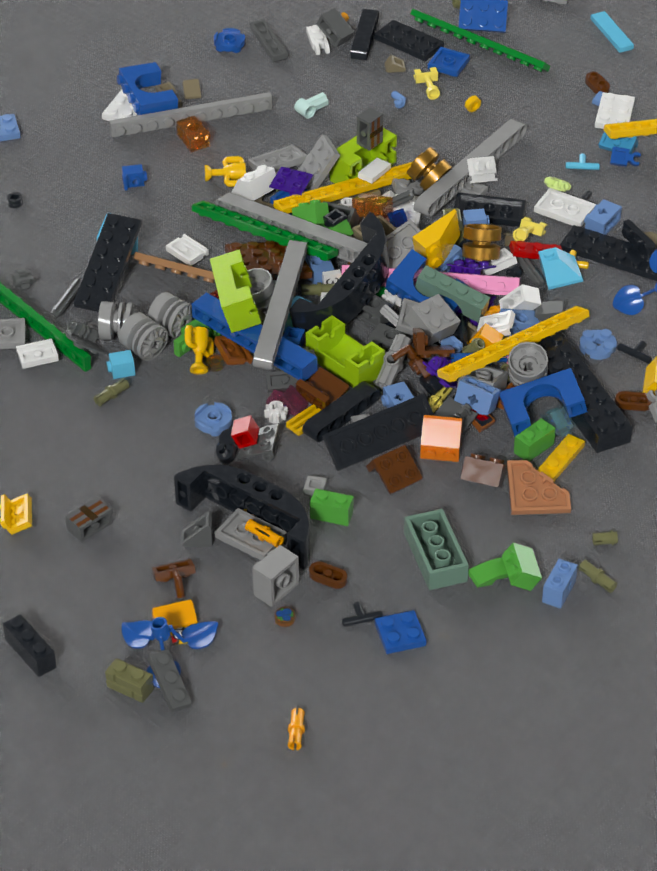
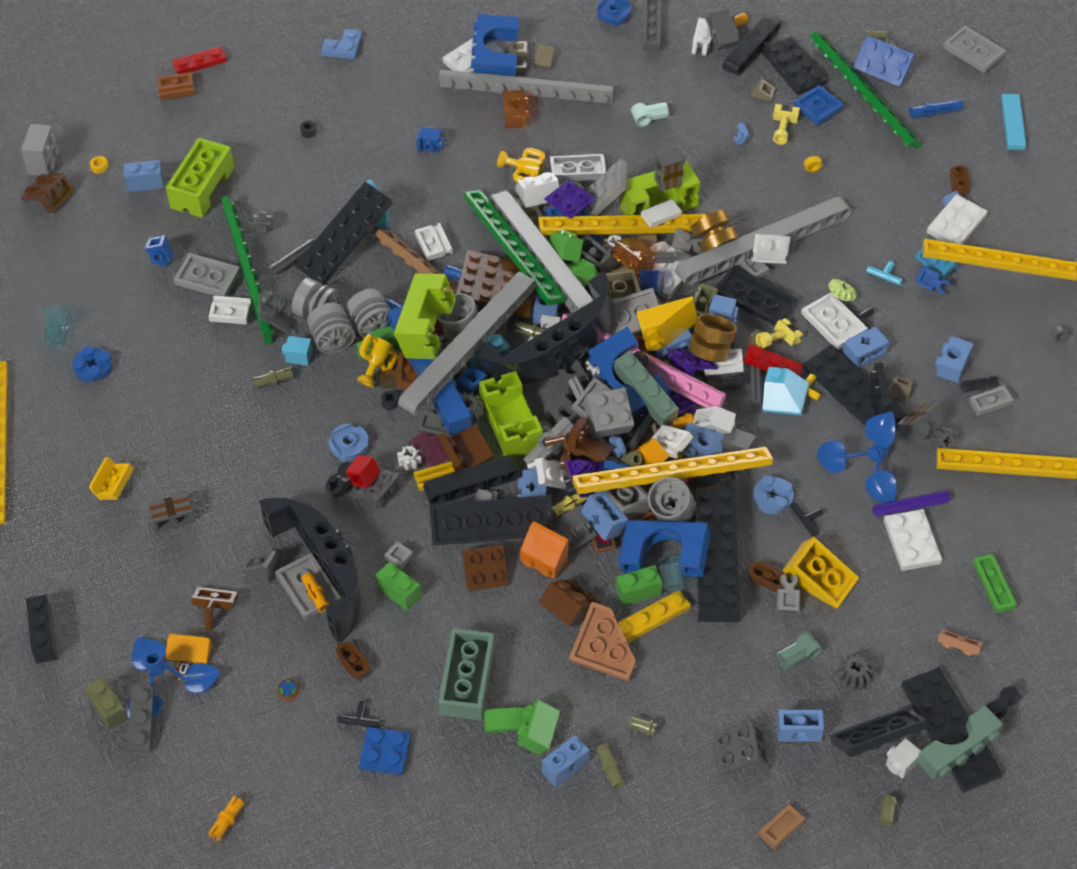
camera: 25 degrees right, 10 degrees up
(228, 372) = (389, 395): none -> black bush
(275, 575) = (297, 644): light grey brick -> none
(334, 218) = (581, 259): black slope -> none
(409, 380) = (549, 472): none -> white bracket
(540, 41) = (931, 109): none -> blue pin

